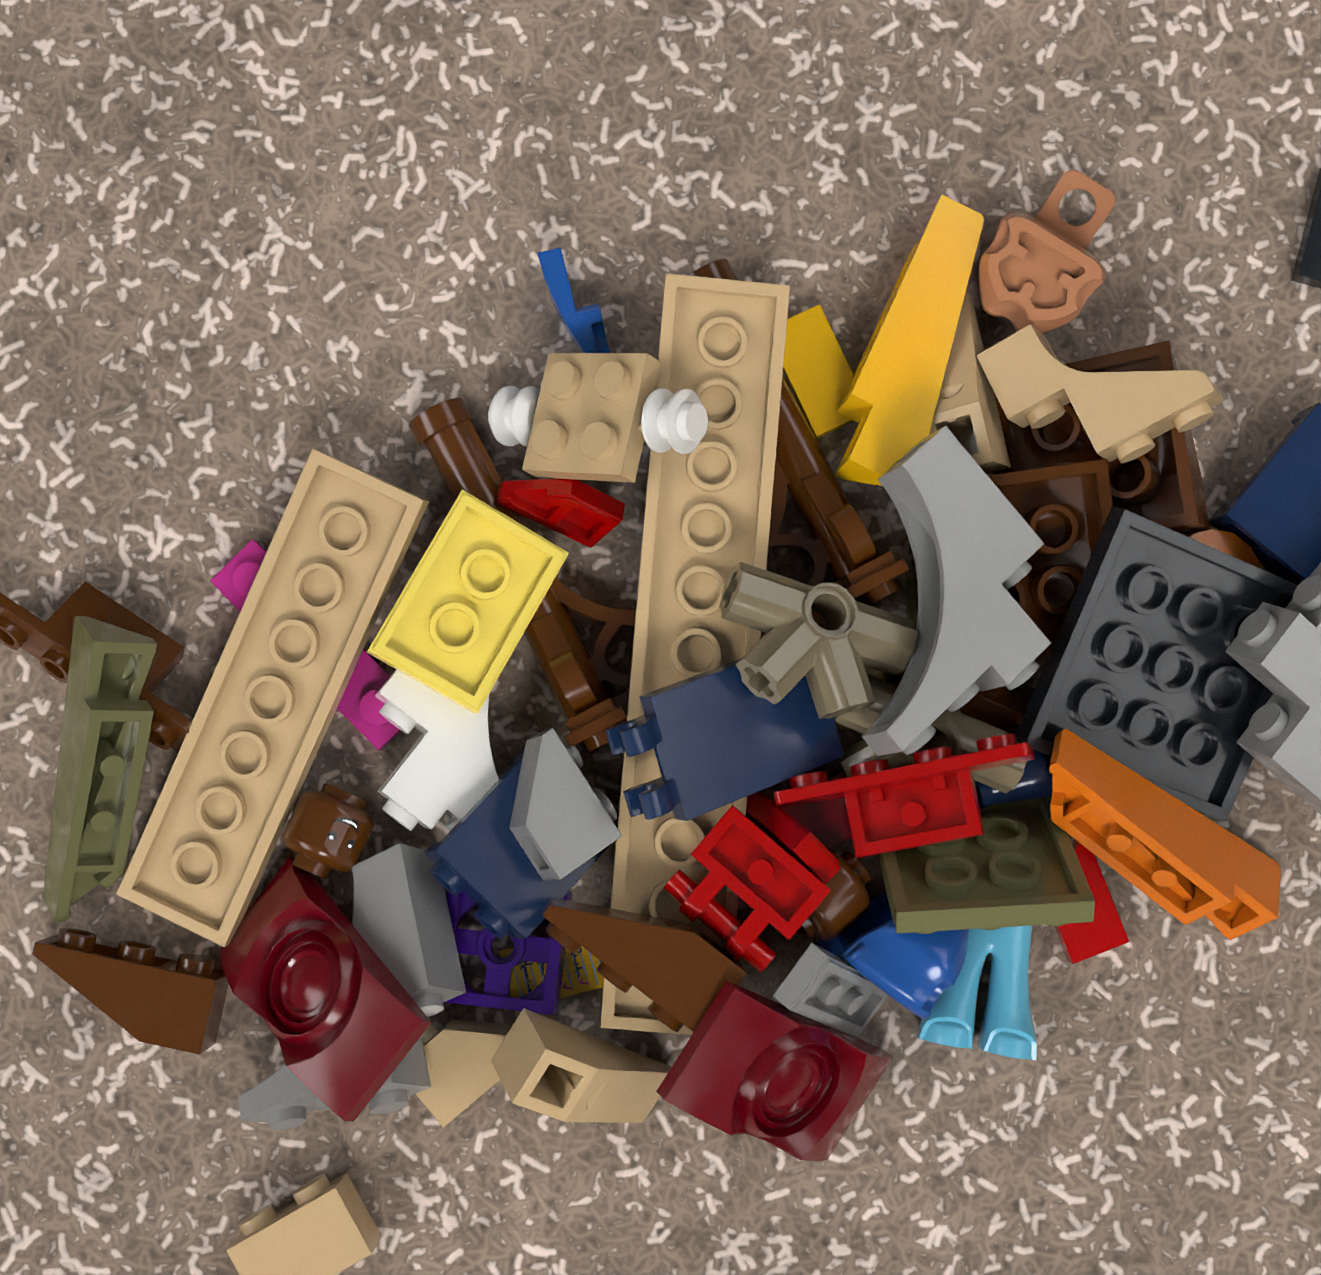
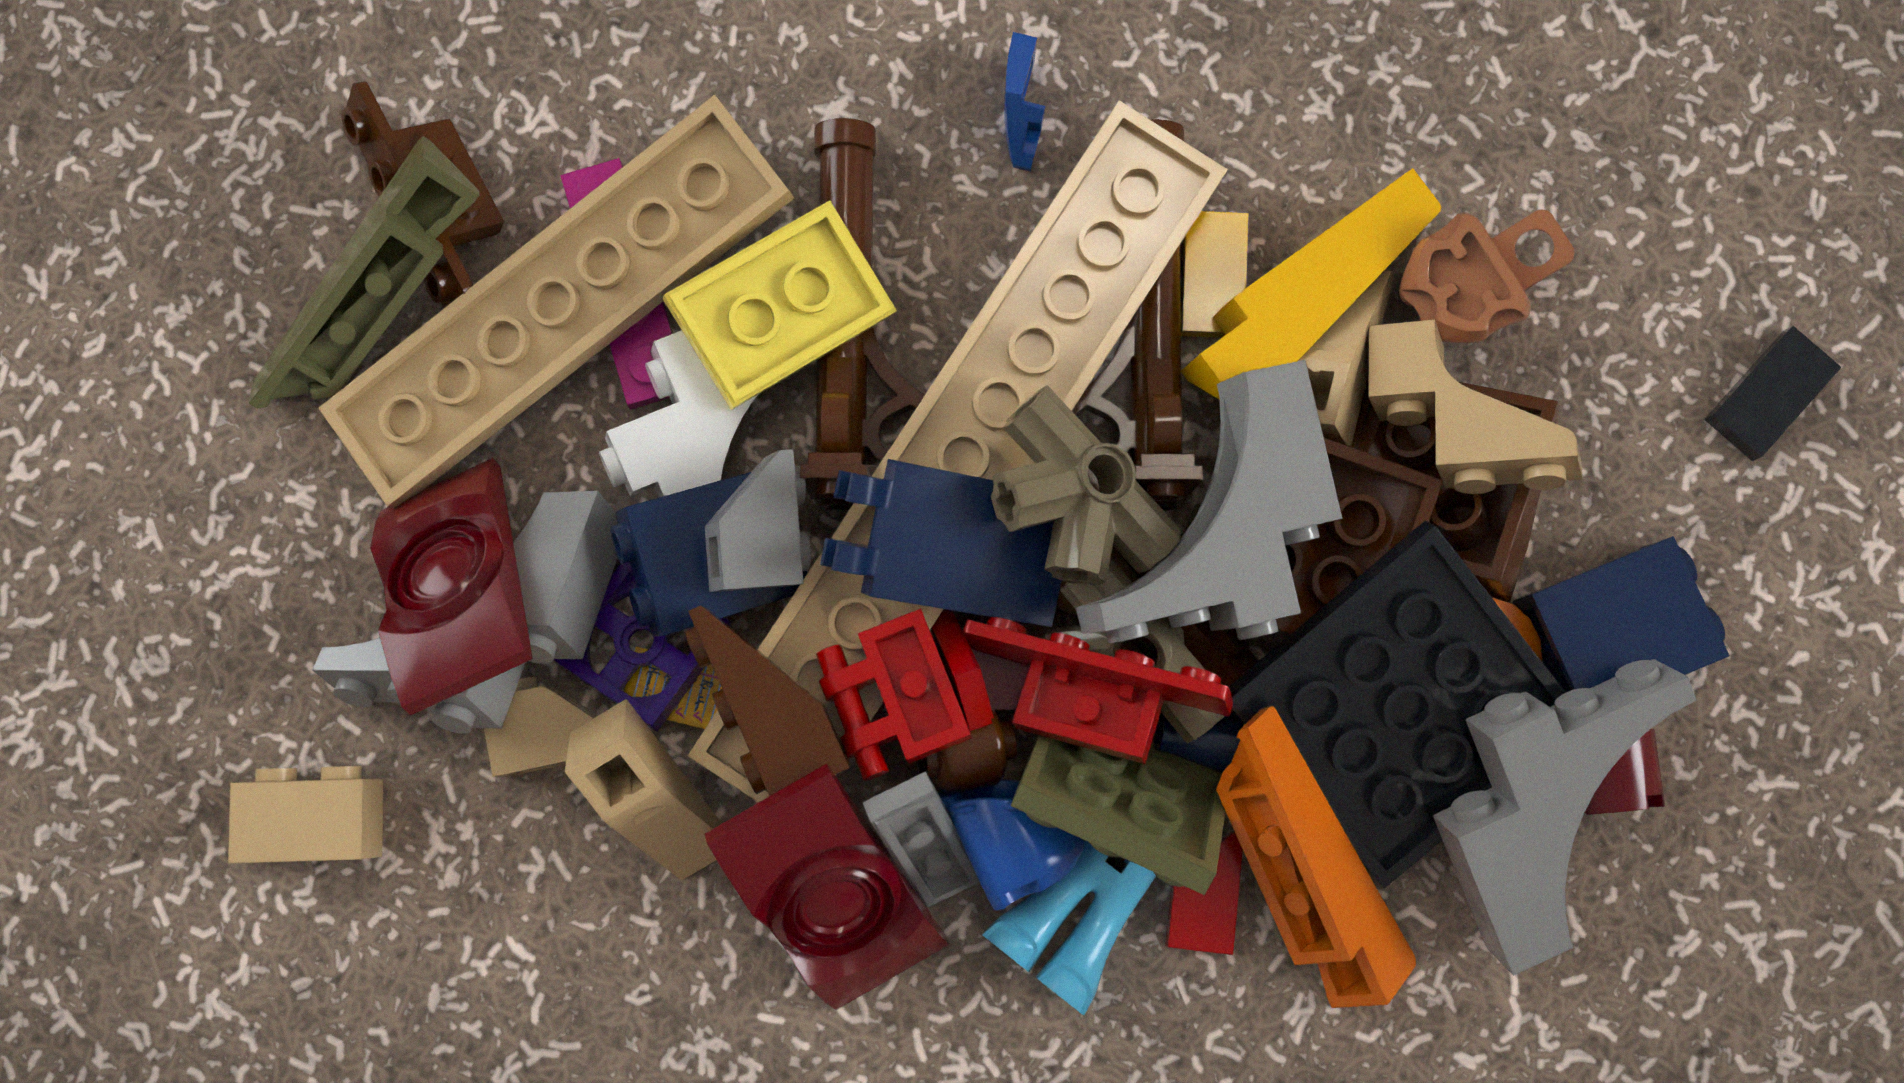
camera: 25 degrees right, 5 degrees down
(145, 994) = (291, 512): reddish brown slope -> none
(328, 830) = (540, 450): reddish brown head -> none
(564, 507) = (915, 270): red tile -> none
(595, 417) = (987, 198): tan plate -> none

